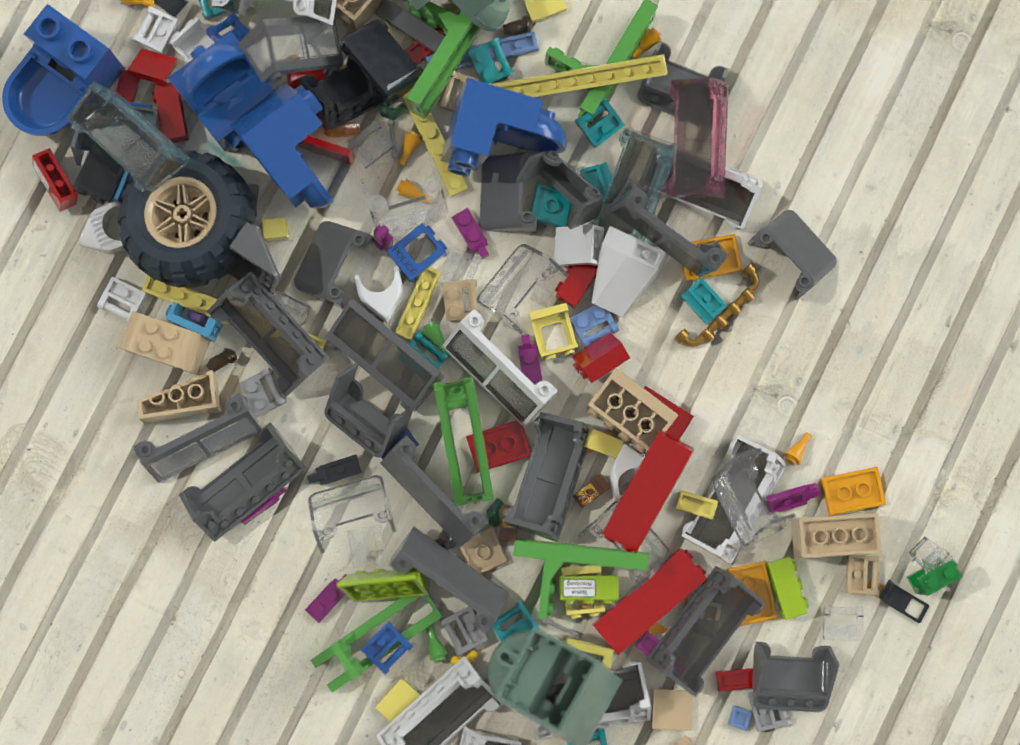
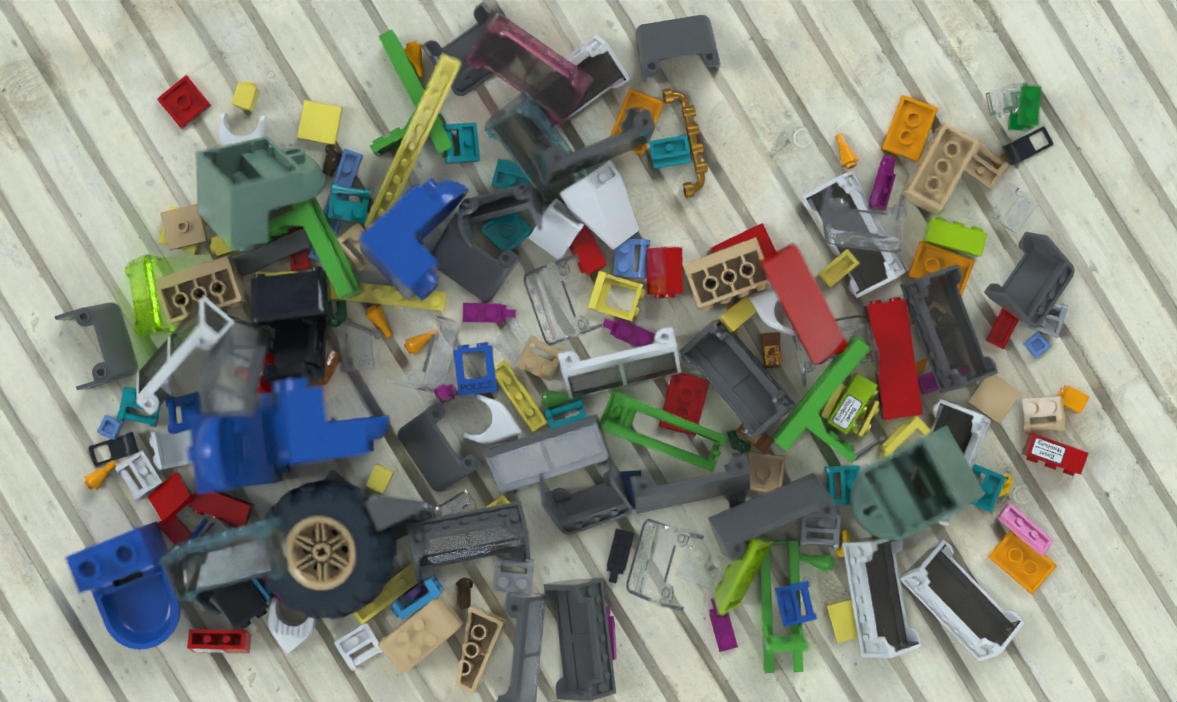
camera: 55 degrees left, 5 degrees up
(327, 149) = (341, 389): red tile -> none

